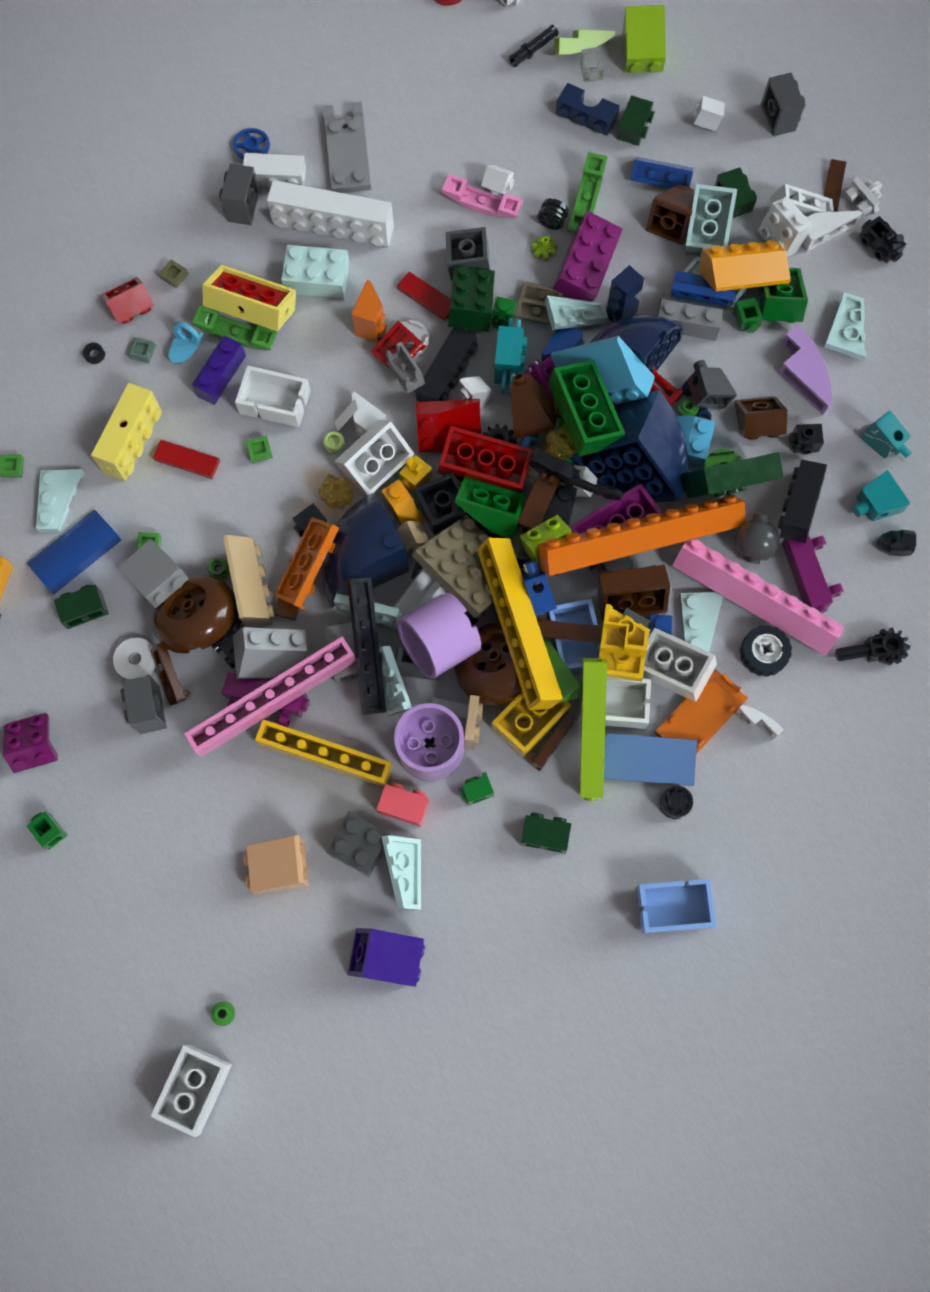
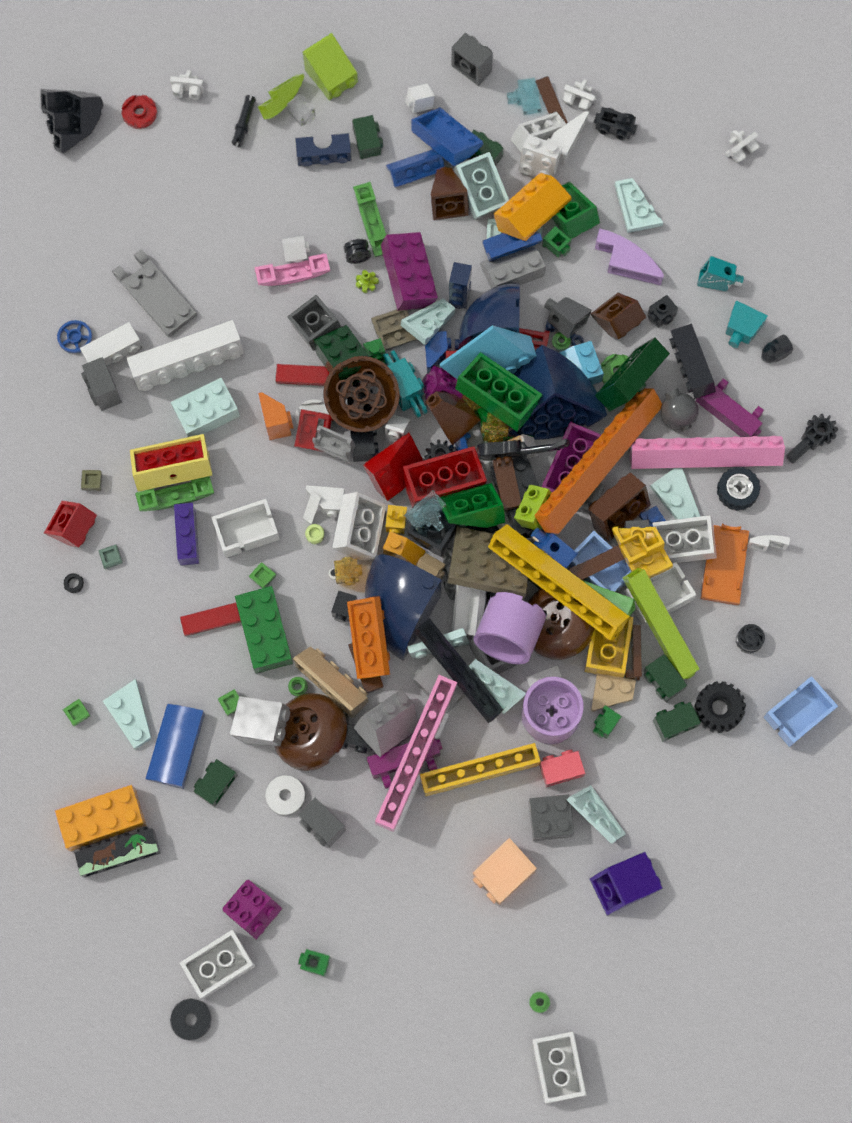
camera: 35 degrees left, 0 degrees up
(127, 432) = (152, 627): light yellow brick -> none
(168, 675) = (321, 789): reddish brown hinge -> none
(184, 343) = (142, 530): medium azure piece -> none
(223, 496) = (263, 629): none -> green brick
(438, 321) = (370, 374): none -> reddish brown brick
(442, 481) = (427, 512): none -> clear light blue hinge
(475, 714) = (567, 668): tan plate -> none
(504, 763) = (611, 691): none -> tan wing
(563, 785) = (664, 678): none -> dark green brick
(615, 842) = (725, 693): none -> black tyre
(650, 759) = (713, 619): medium blue tile -> none
(709, 157) = (446, 136): none -> blue slope
(812, 169) = (526, 96): none -> clear light blue hinge

